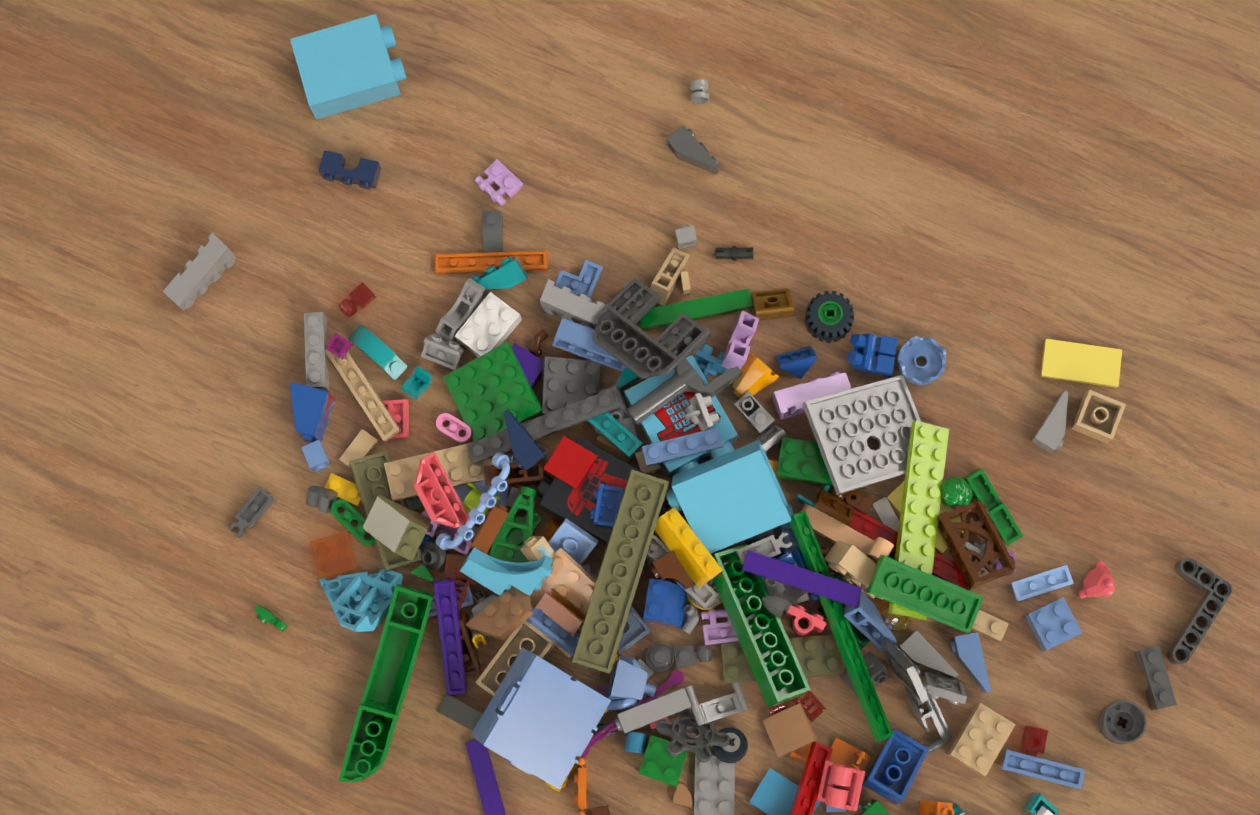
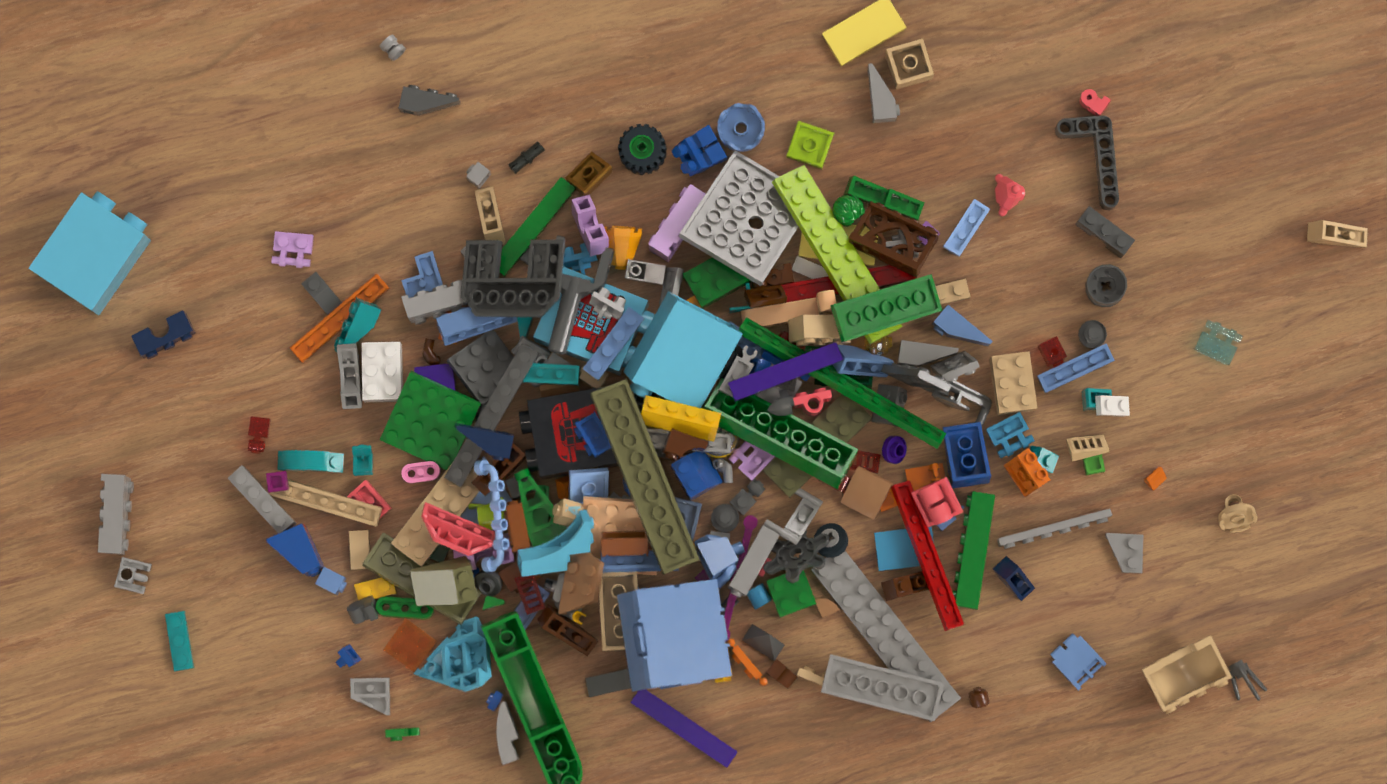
camera: 45 degrees left, 5 degrees up
(165, 334) = (133, 565): none -> light grey brick
(166, 408) = (179, 641): none -> teal plate
(252, 511) = (317, 663): dark grey plate -> none
(274, 568) = (372, 693): none -> light grey wing
(279, 524) = (348, 657): none -> blue tile
(347, 686) = (506, 735): none -> light grey slope
(361, 652) = (494, 700): none -> blue plate
(442, 352) = (361, 420): light grey bracket -> none
(450, 636) = (554, 631): dark purple tile -> none
(570, 462) = (537, 425): red tile -> none
(609, 782) = (763, 642): none -> dark grey slope
(685, 282) = (508, 212): tan tile -> none
(797, 361) = (645, 204): blue slope -> none
(840, 713) = (894, 449): none -> dark purple plate
(945, 773) = (1006, 430): none -> dark azure plate
(966, 418) = (810, 144): none -> lime tile
(1052, 624) = (998, 253): medium blue brick -> none
(1079, 752) = (1092, 334): none -> dark grey plate
(1226, 565) = (1092, 103): none -> coral leg

